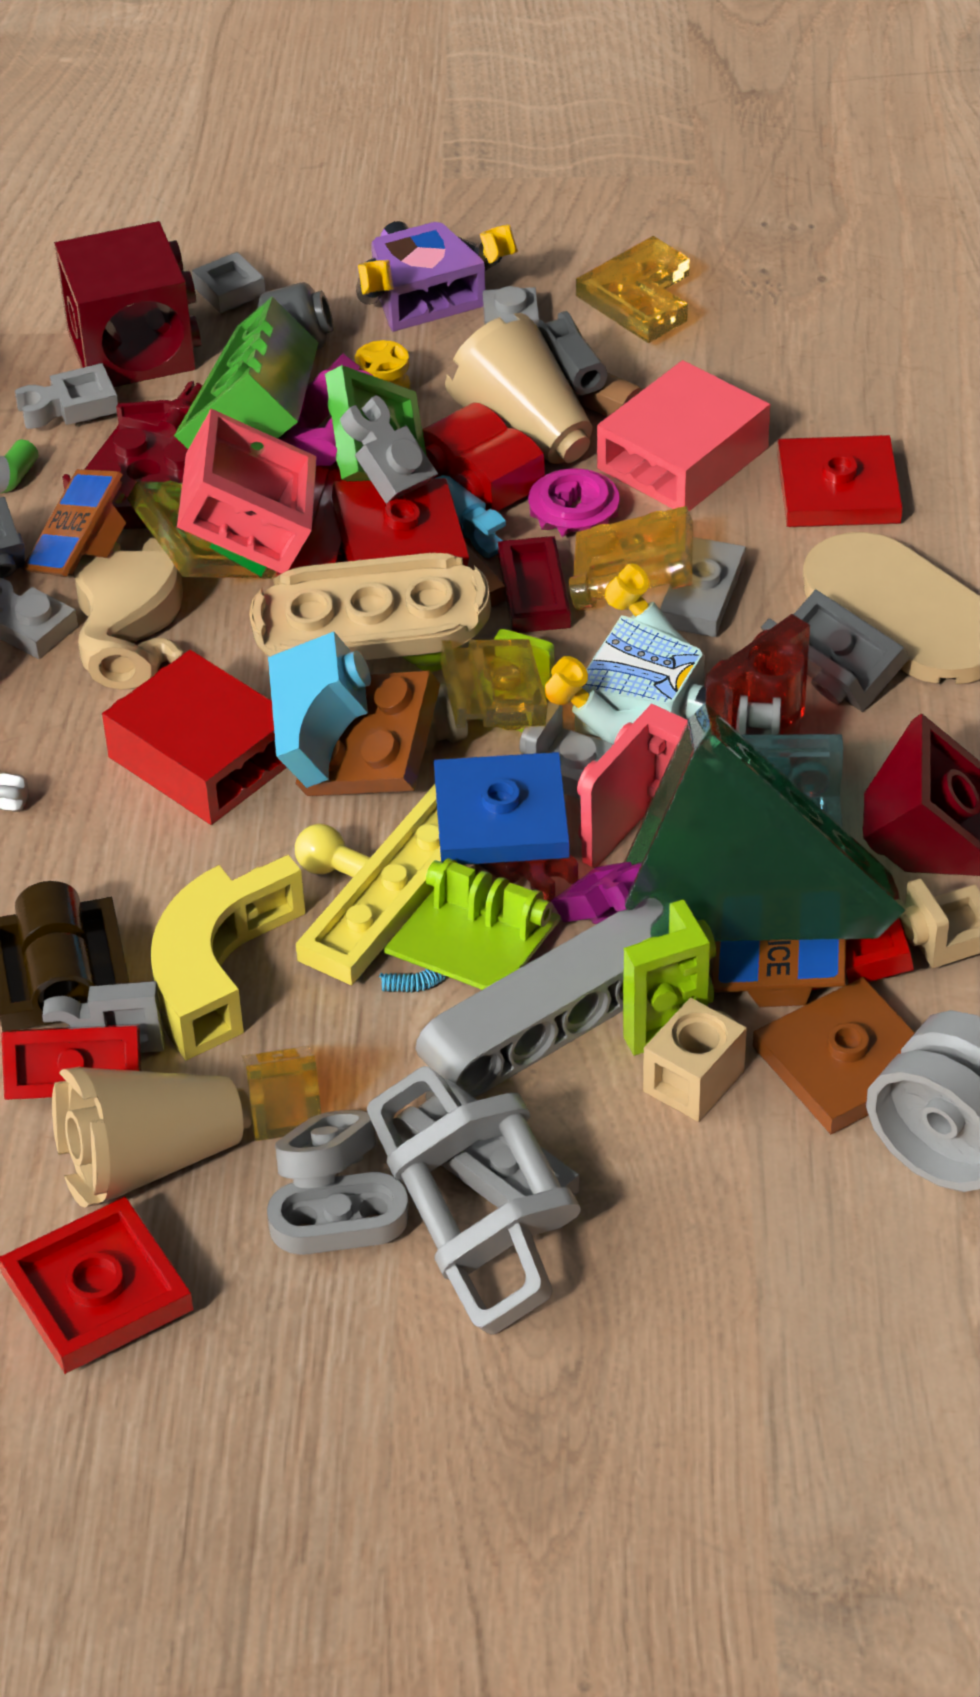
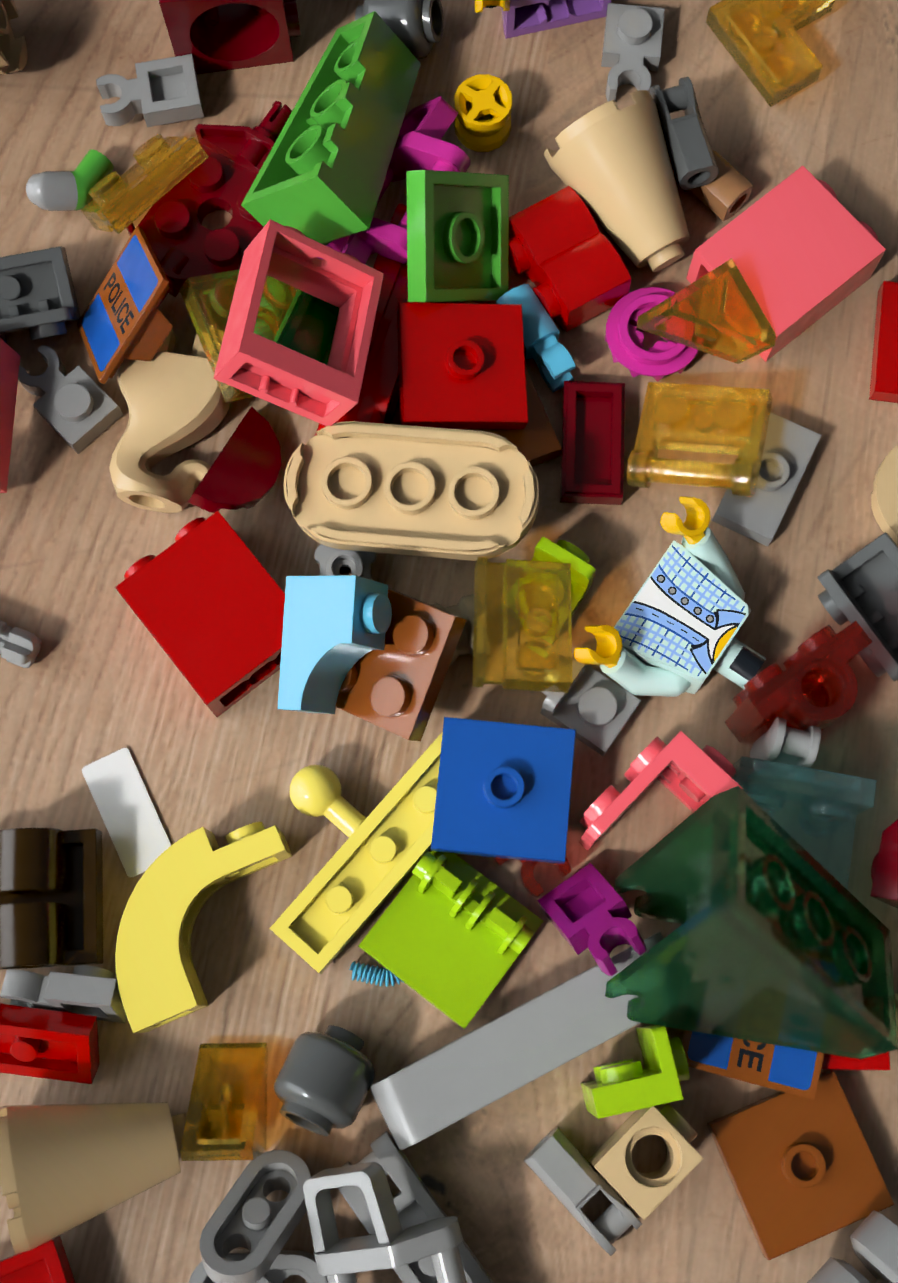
camera: 10 degrees right, 30 degrees up
(81, 439) = (158, 169): none -> clear yellow plate
(134, 898) = (126, 810): none -> white sticker
(206, 630) = (243, 469): none -> dark red tile
(371, 1045) = (324, 1080): none -> dark grey head
(388, 456) = (465, 289): light grey plate -> none
(622, 466) = (713, 316): none -> clear yellow slope
(647, 1103) = (575, 1183): none -> light grey bar

